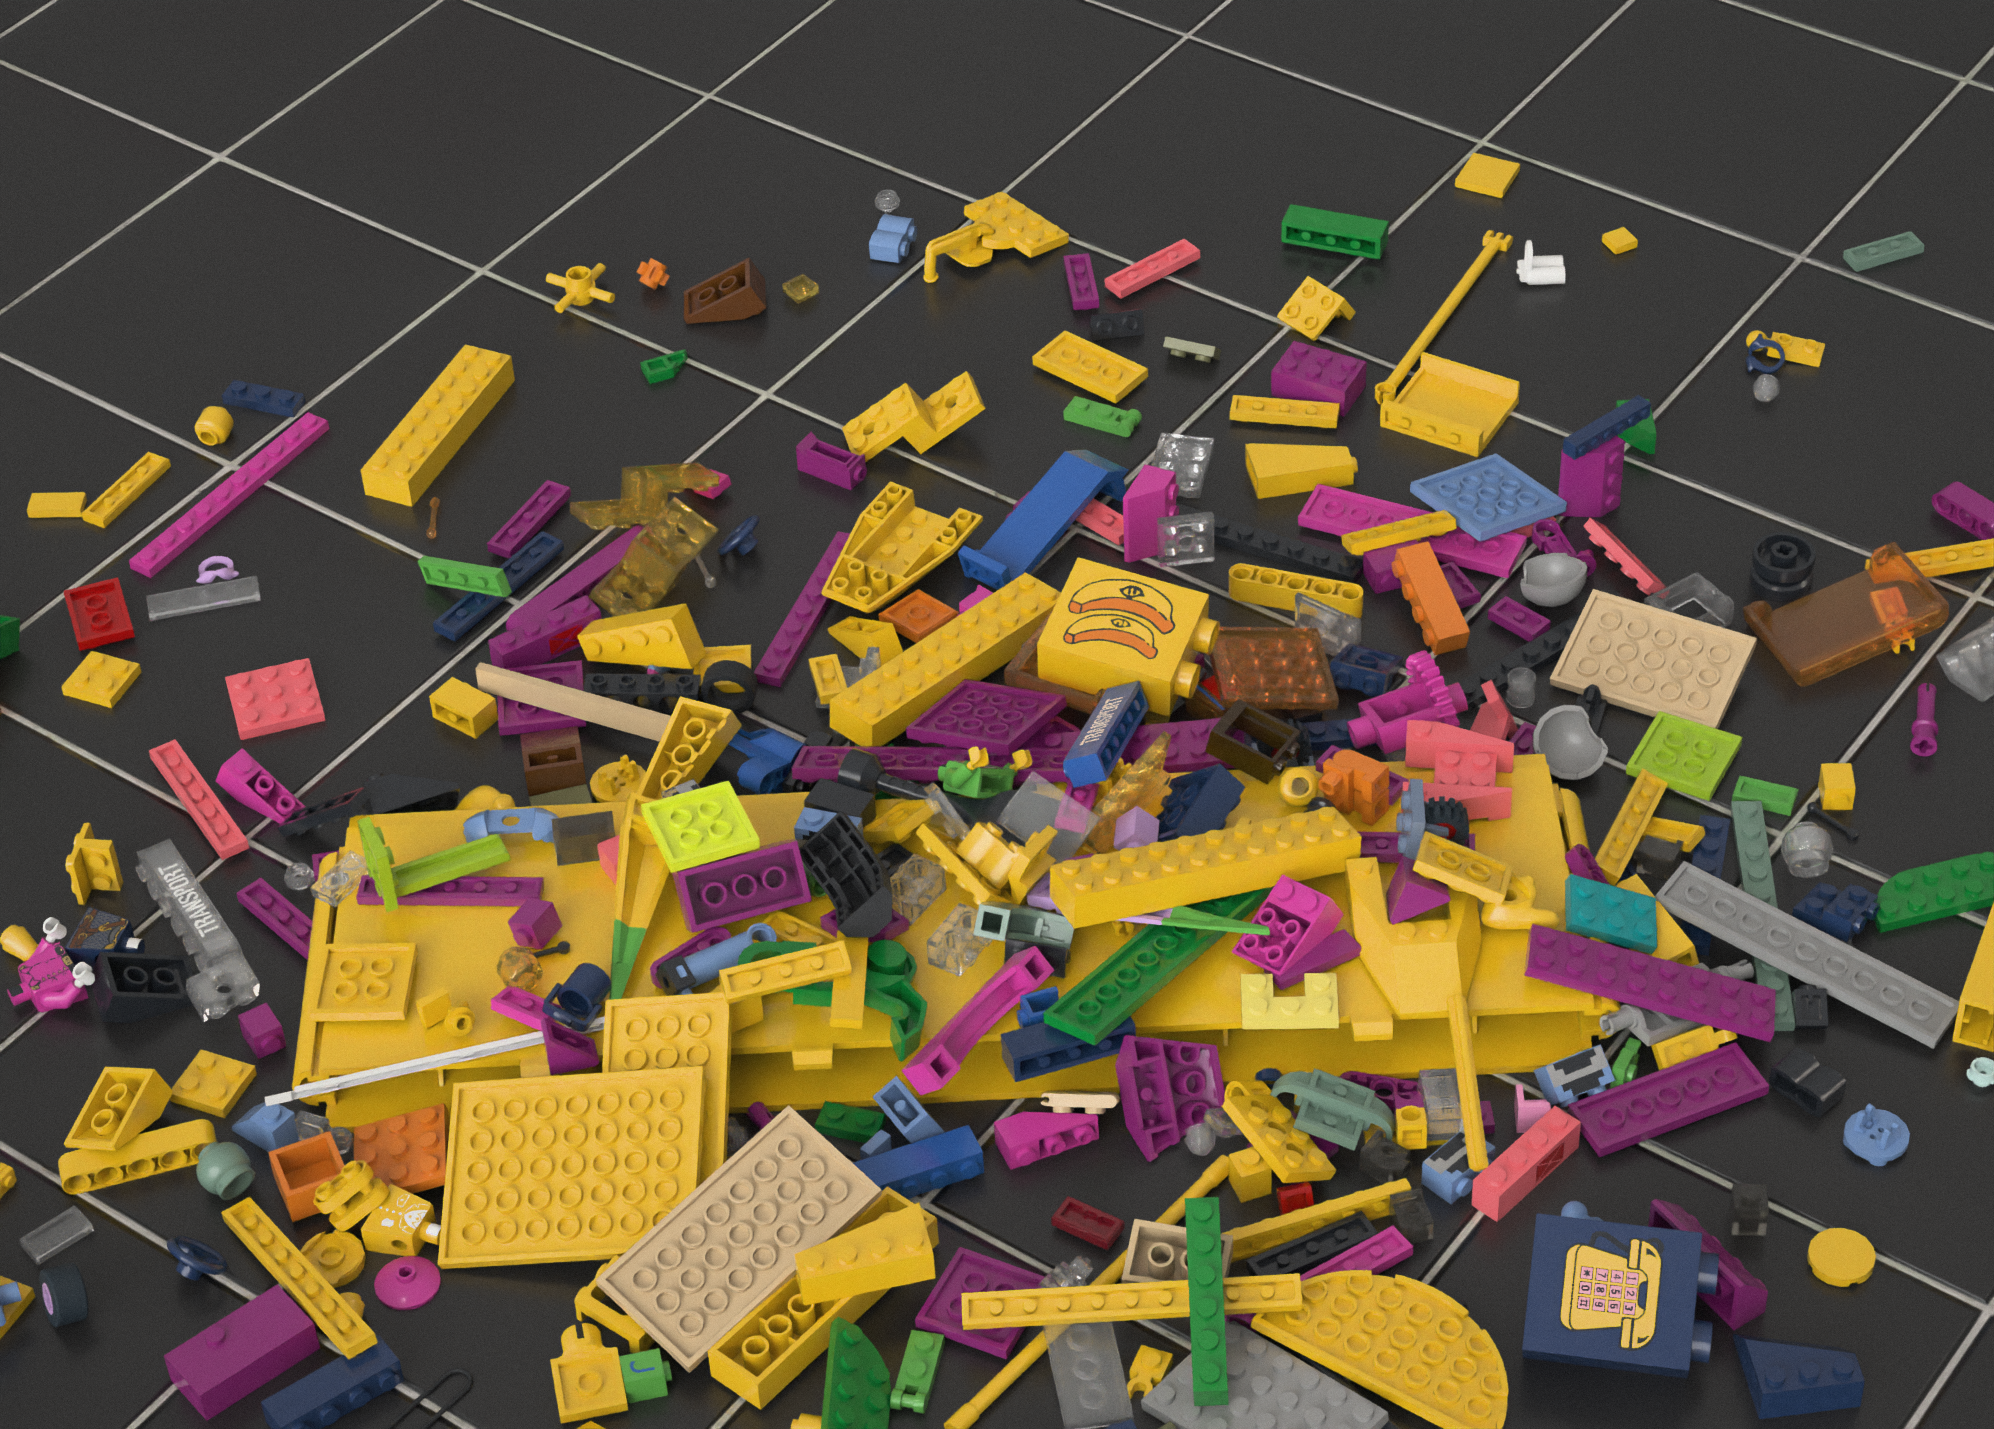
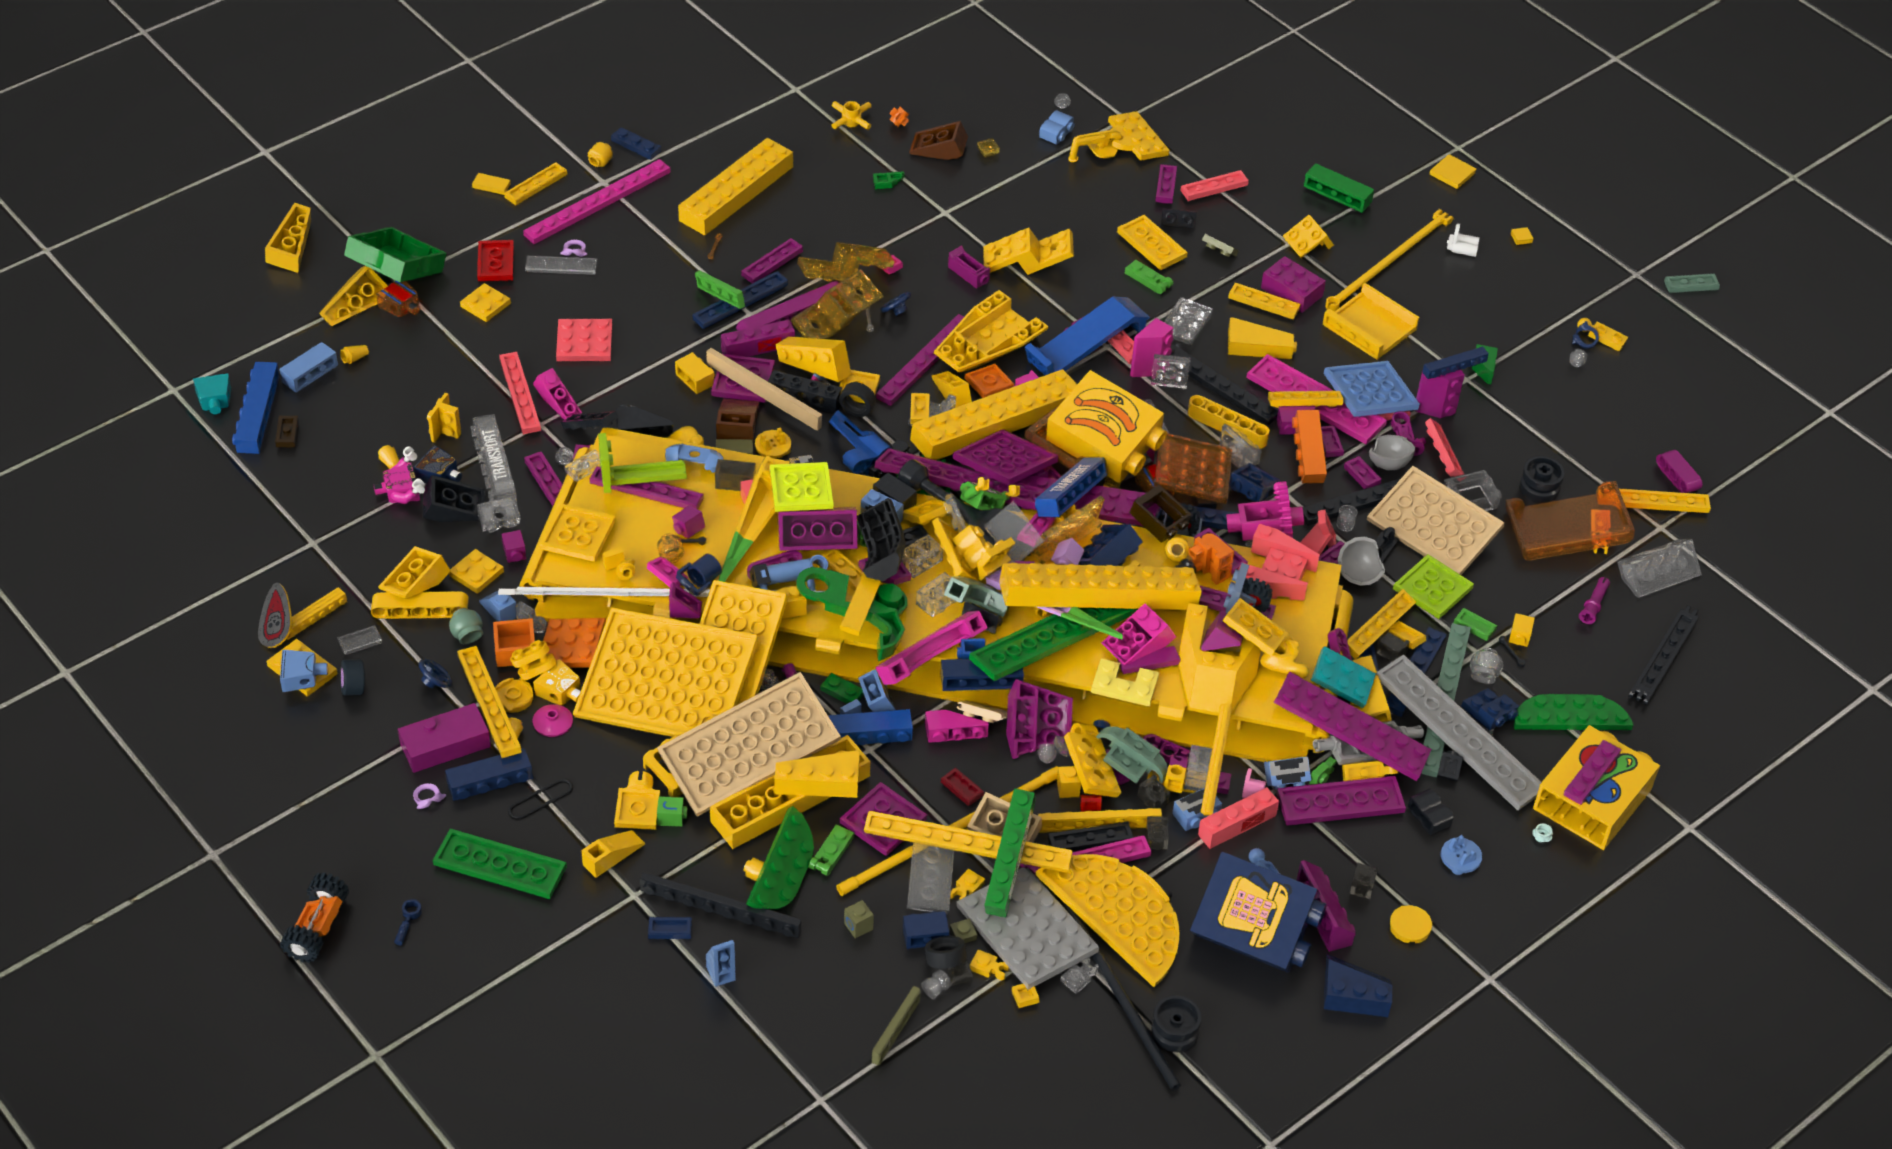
camera: 10 degrees right, 5 degrees up
(688, 746) = (817, 432): yellow wedge -> none
(785, 972) = (822, 589): yellow hinge -> none
(1069, 1275) = (939, 816): clear plate -> none

